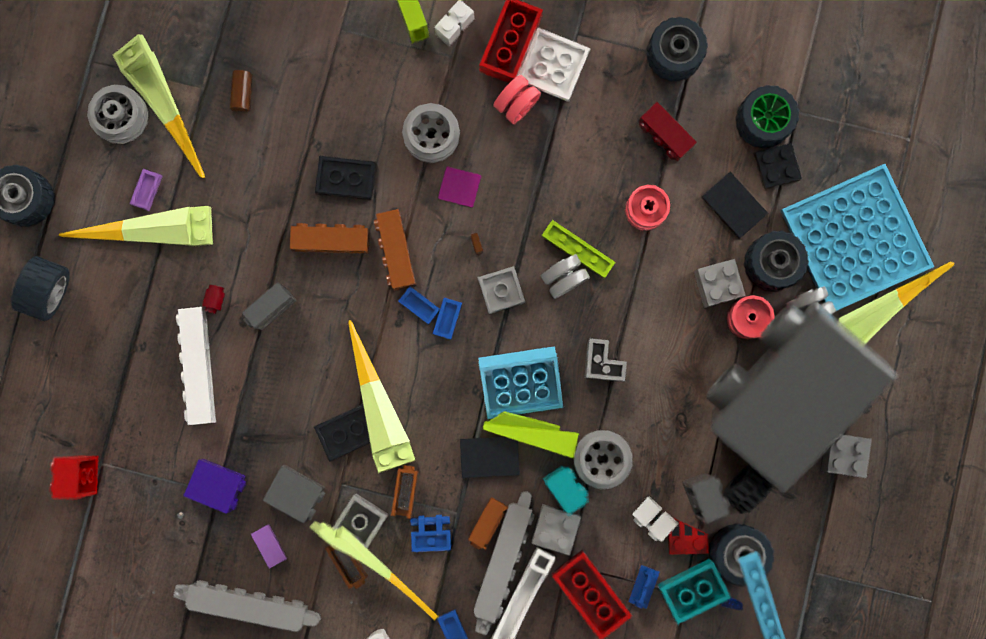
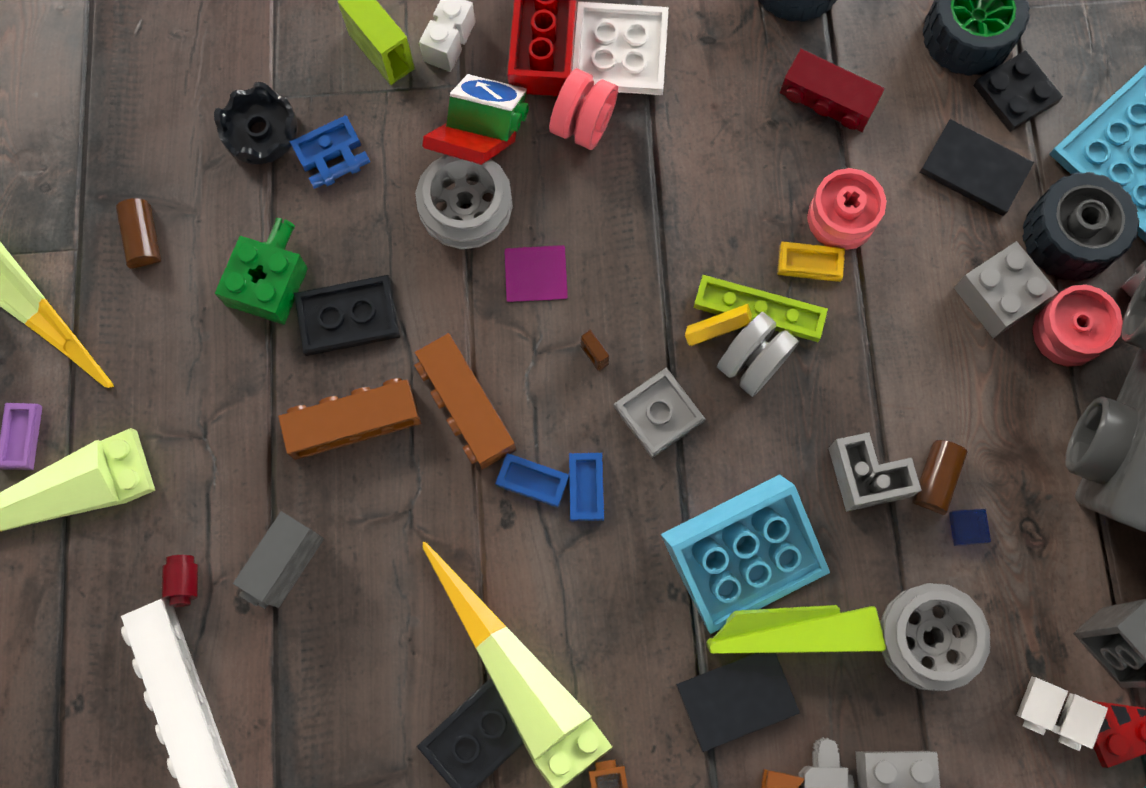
camera: 15 degrees left, 10 degrees down
(311, 132) = (263, 275): none -> green brick
(320, 35) = (249, 108): none -> black plate
(364, 70) = (326, 144): none -> blue plate
(445, 98) = (465, 144): none -> red tile
(462, 80) = (487, 107): none -> piece
(550, 252) = (718, 325): none -> yellow tile
(565, 489) = (896, 710): teal brick -> none
(617, 230) = (811, 261): none -> yellow tile
(642, 375) = (940, 476): none -> reddish brown brick
(648, 408) = (969, 527): none -> clear blue tile

